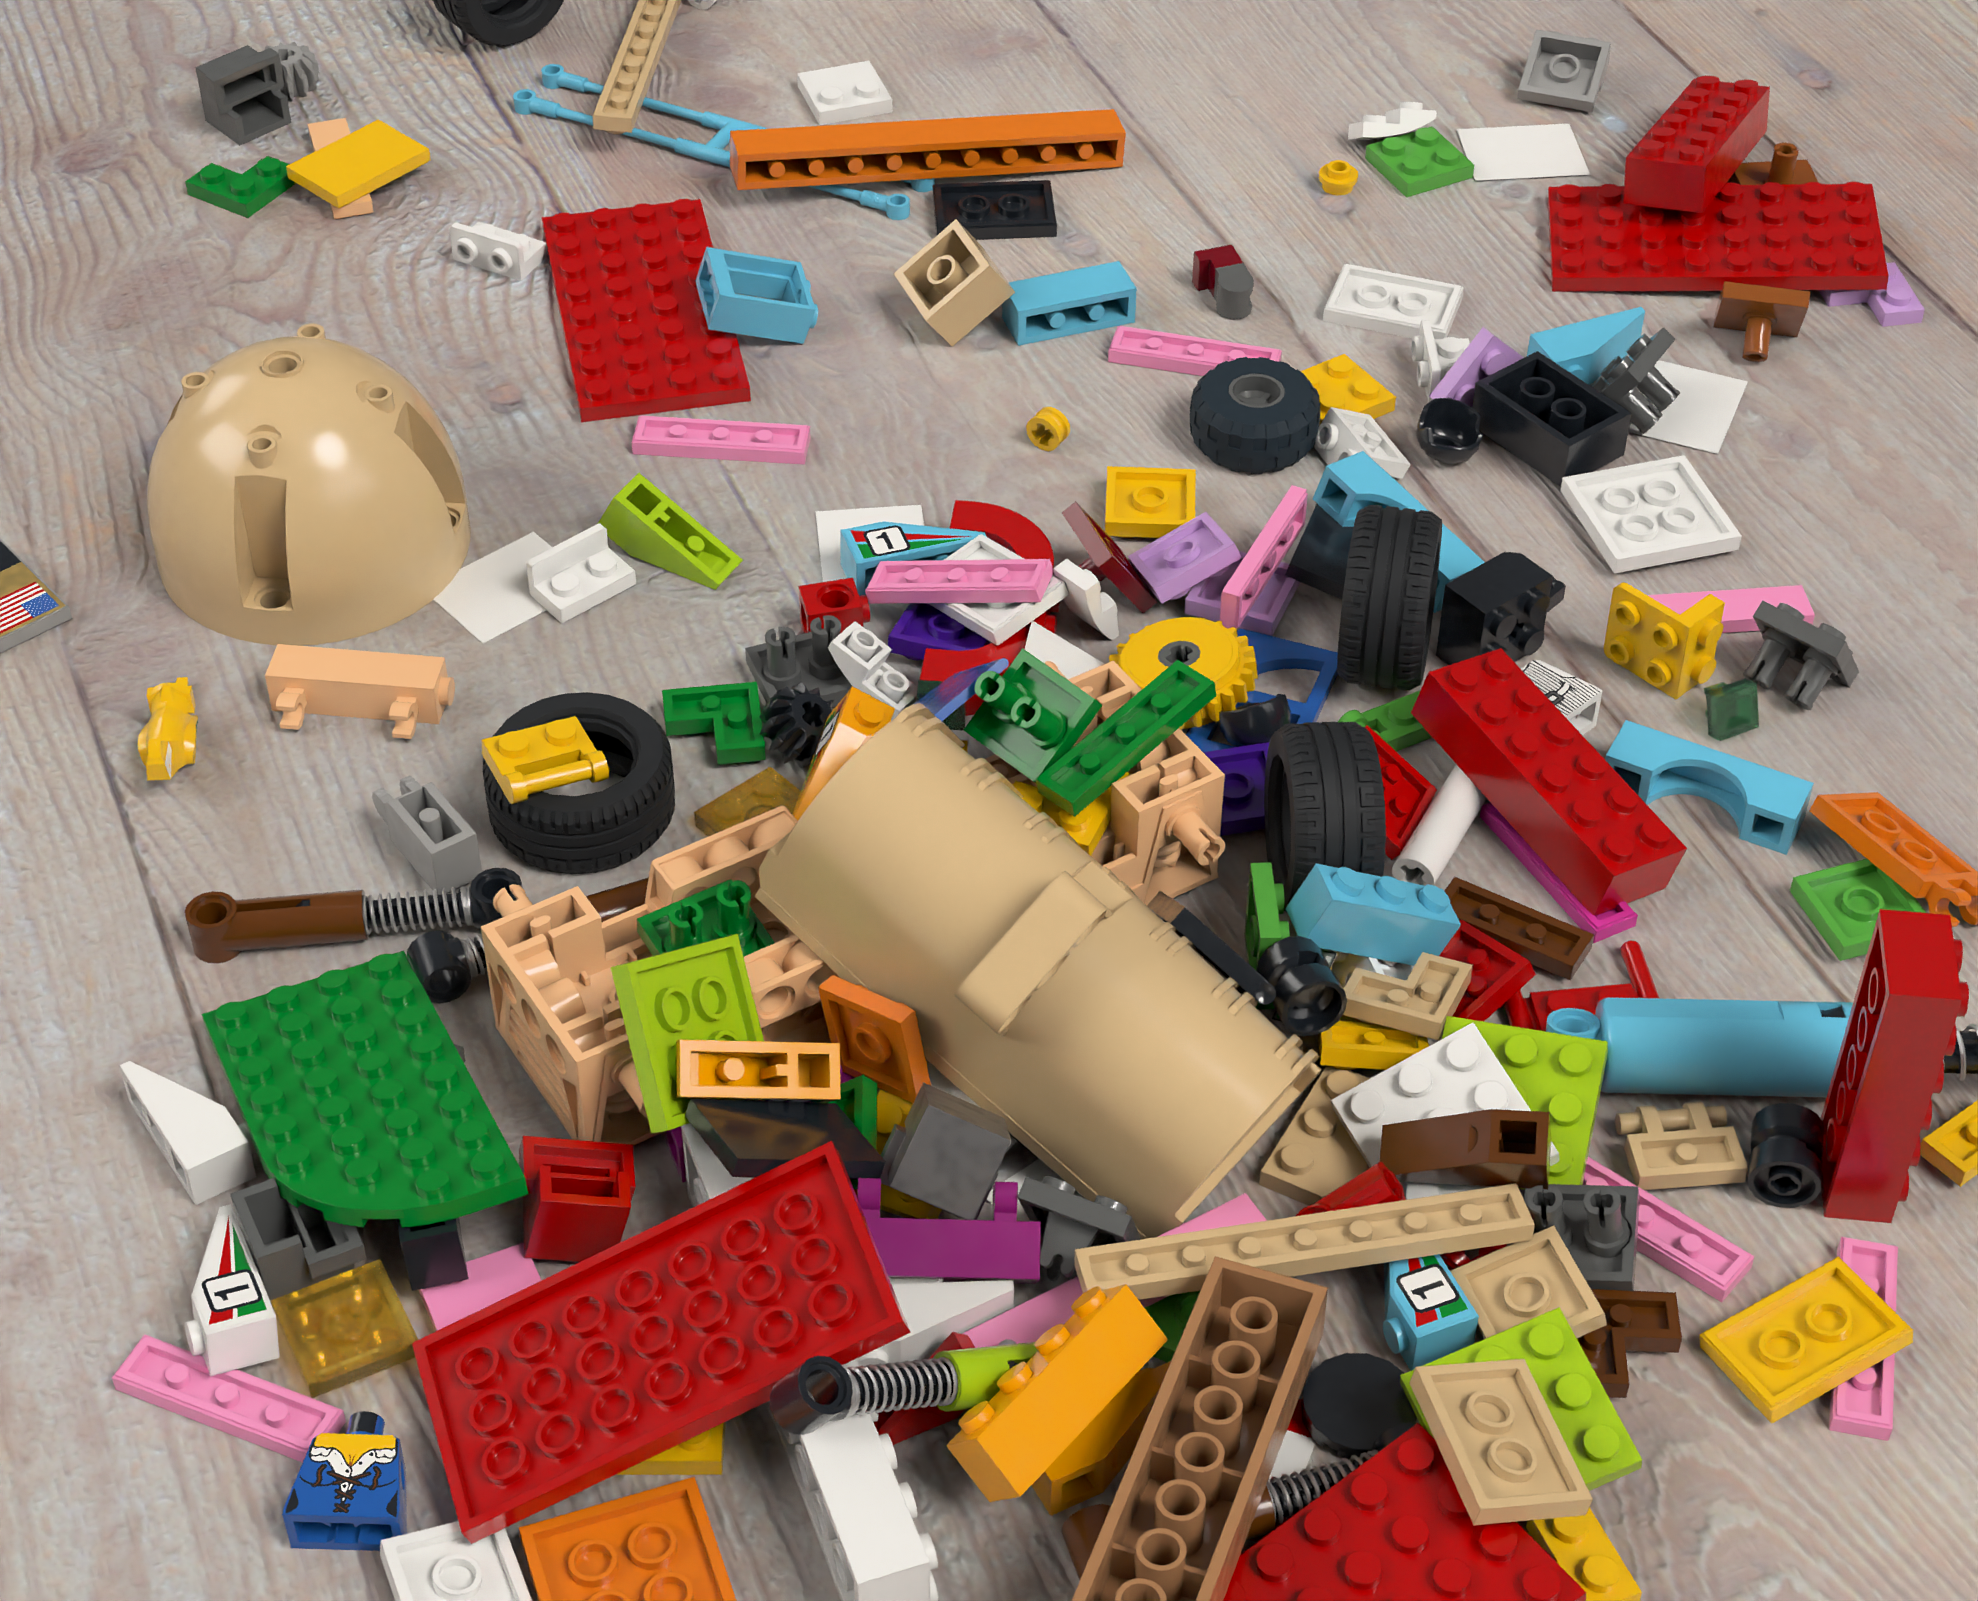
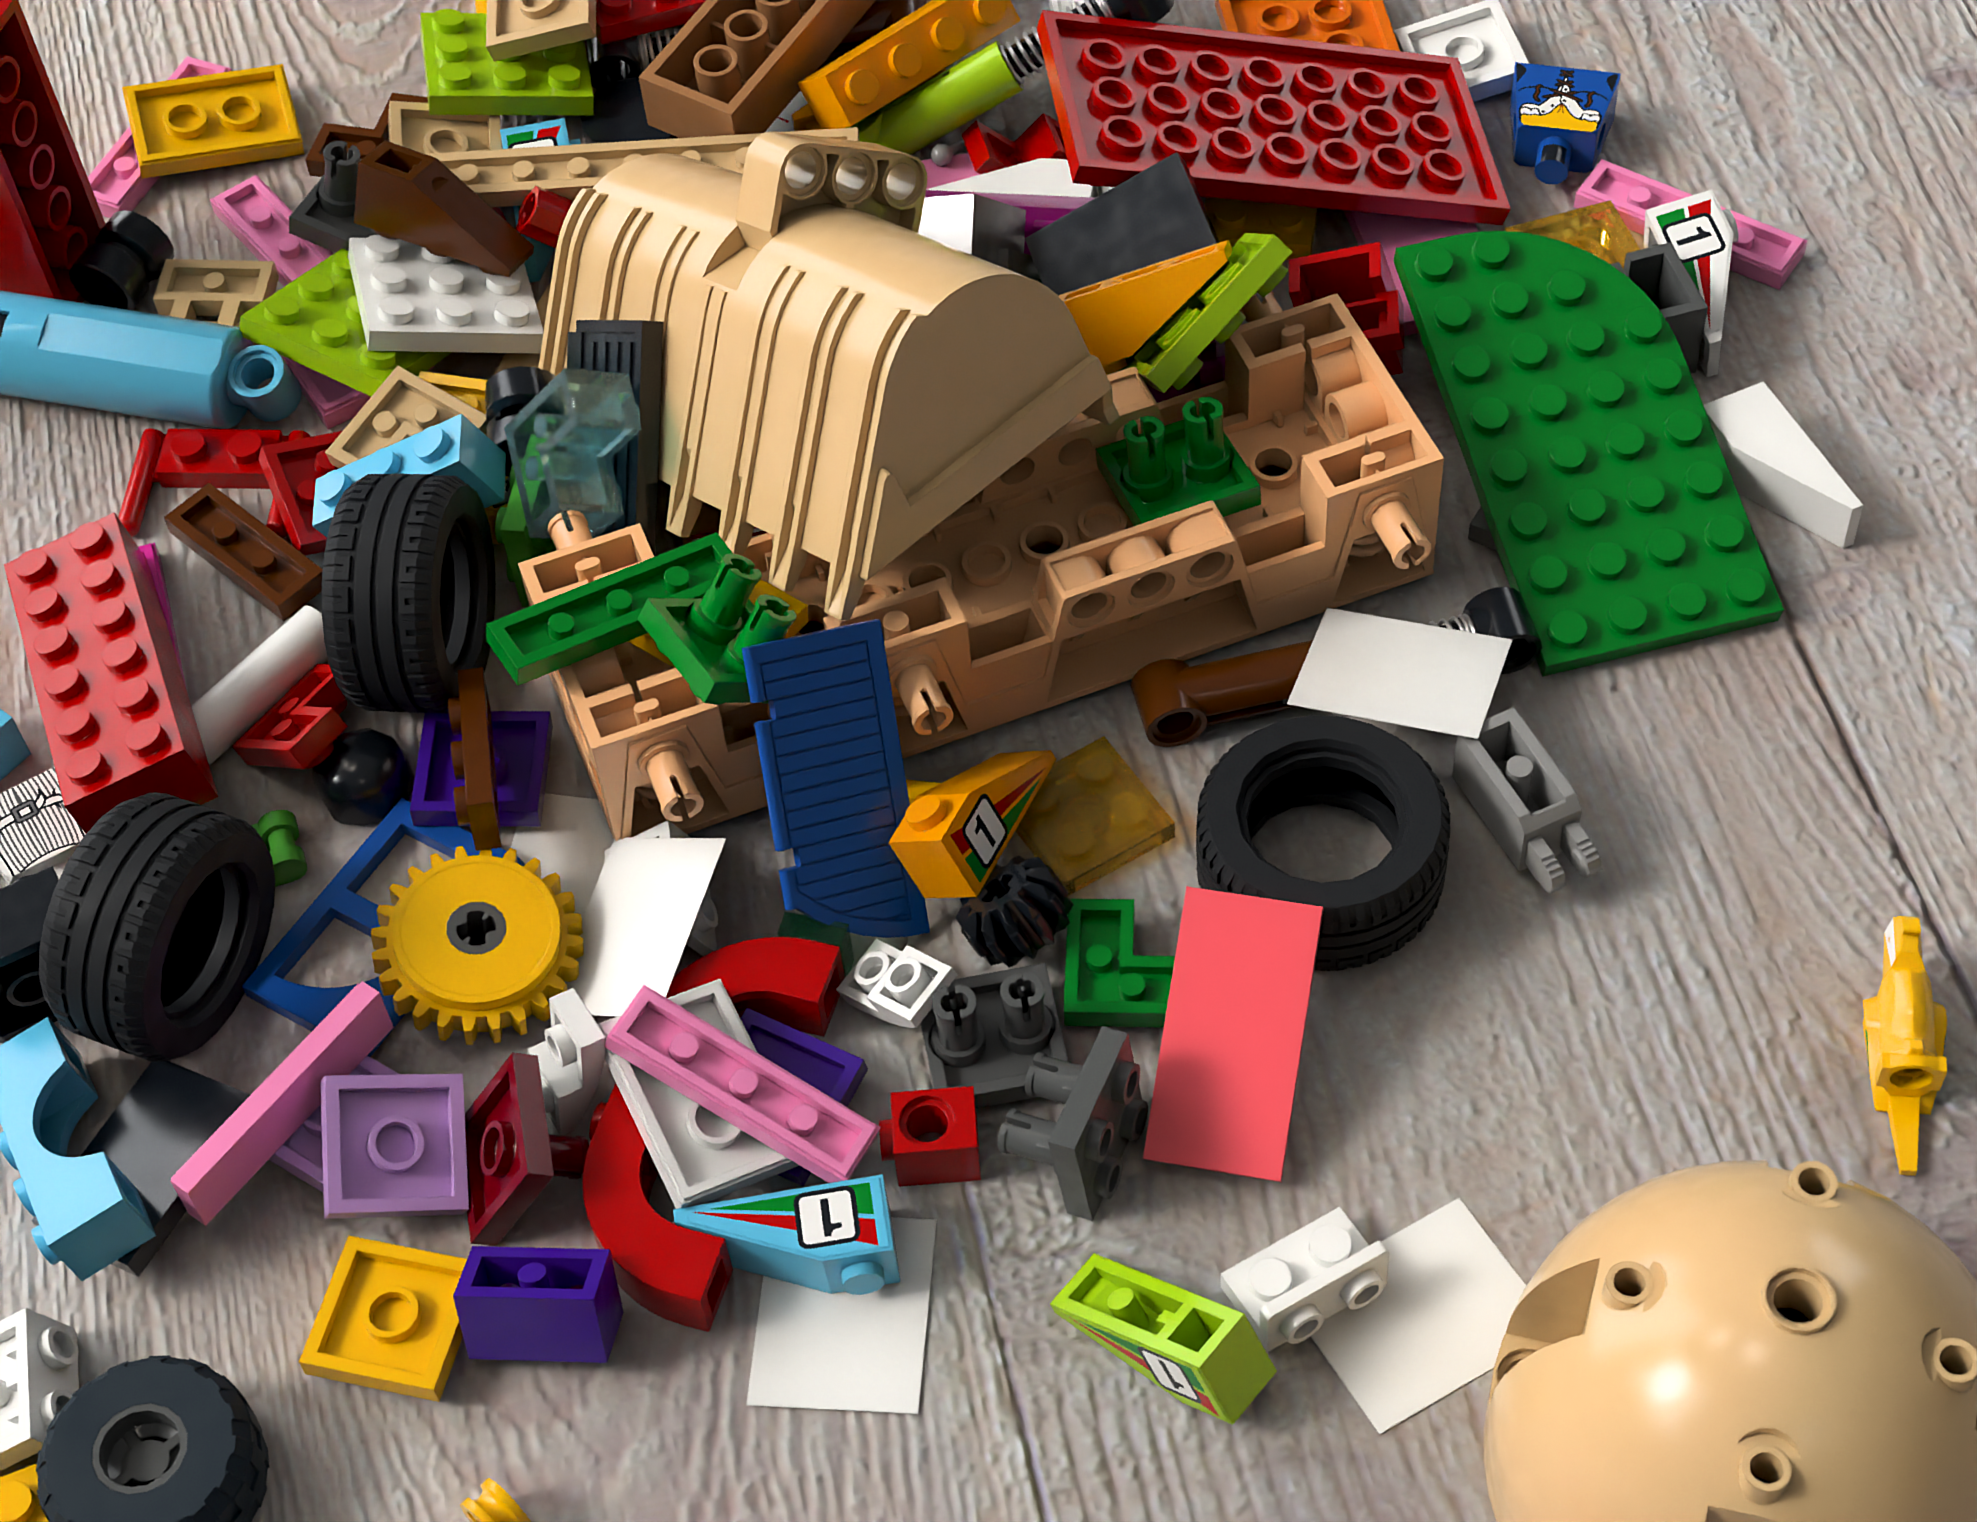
camera: 165 degrees left, 10 degrees up
(227, 926) = (1771, 715): reddish brown piece -> none
(358, 686) = (1638, 1087): light nougat brick -> none
(495, 857) = (1401, 672): none -> white sticker
(543, 758) = (1371, 796): yellow plate -> none
(633, 659) = (1233, 1034): none -> coral tile
(722, 603) = (1094, 1127): none -> dark grey plate
(1046, 490) = (539, 1304): none -> dark purple brick
(1227, 889) = (566, 445): none -> clear light blue brick
(1228, 751) = (475, 760): none -> reddish brown plate
(1255, 721) = (406, 836): black hair -> none

